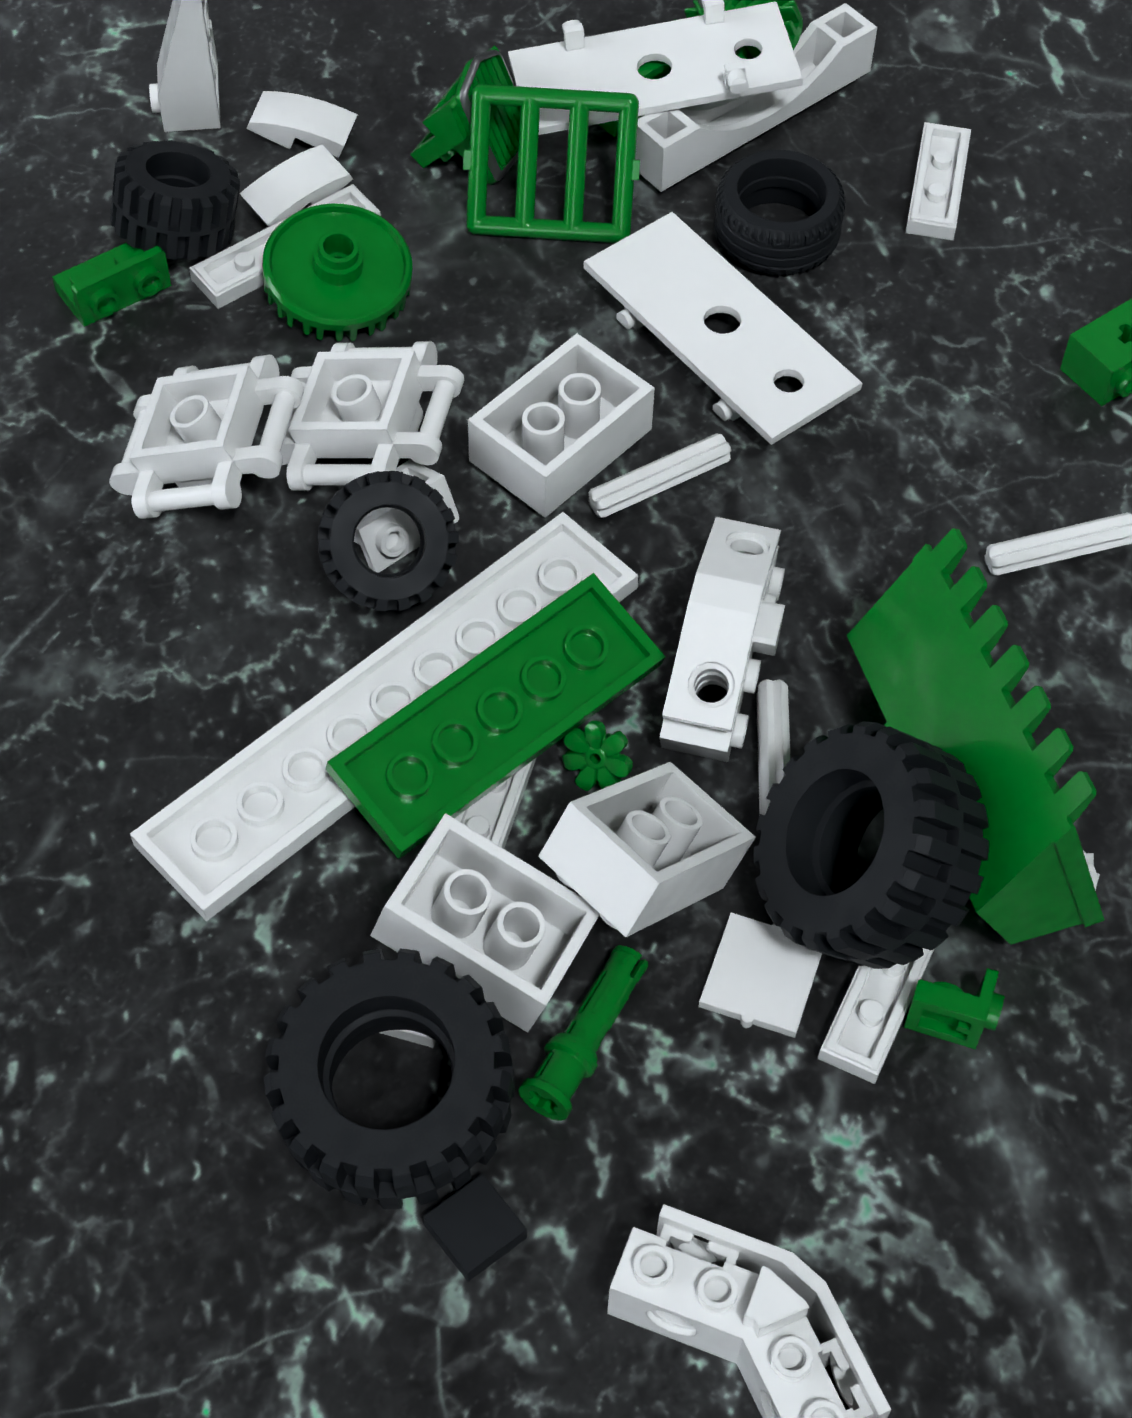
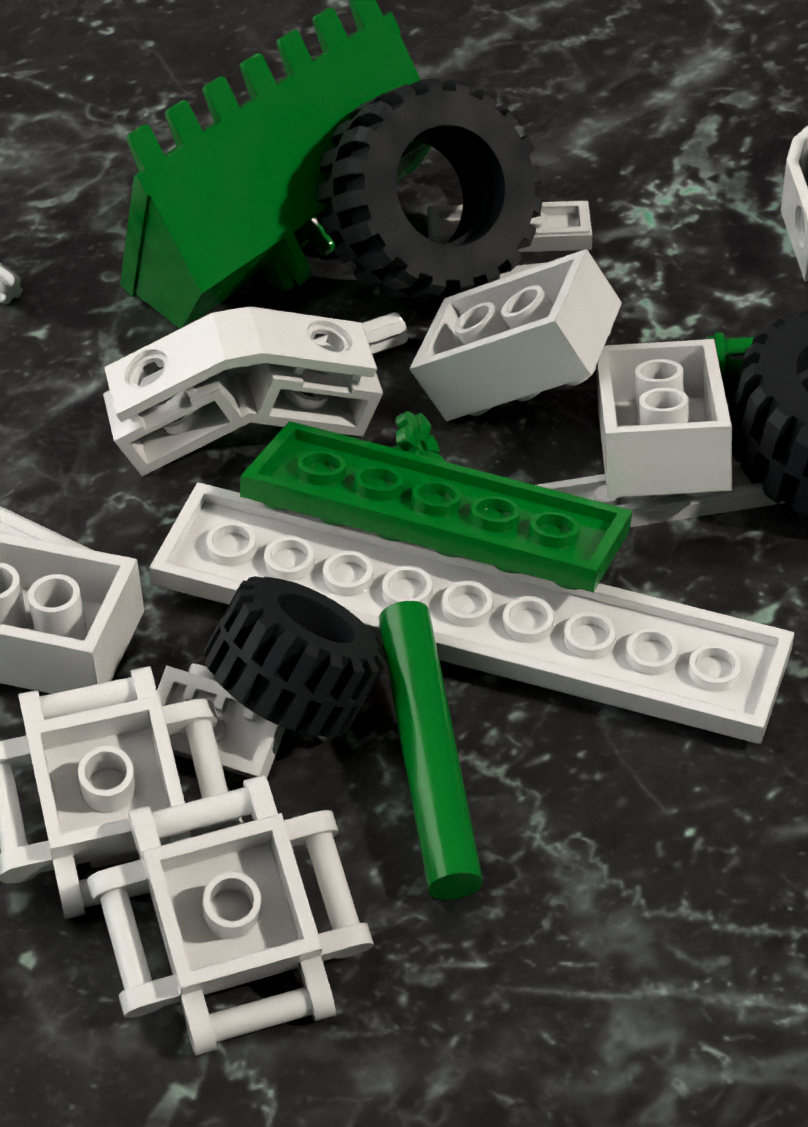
camera: 115 degrees left, 10 degrees down
(267, 607) = (430, 752): none -> green piece

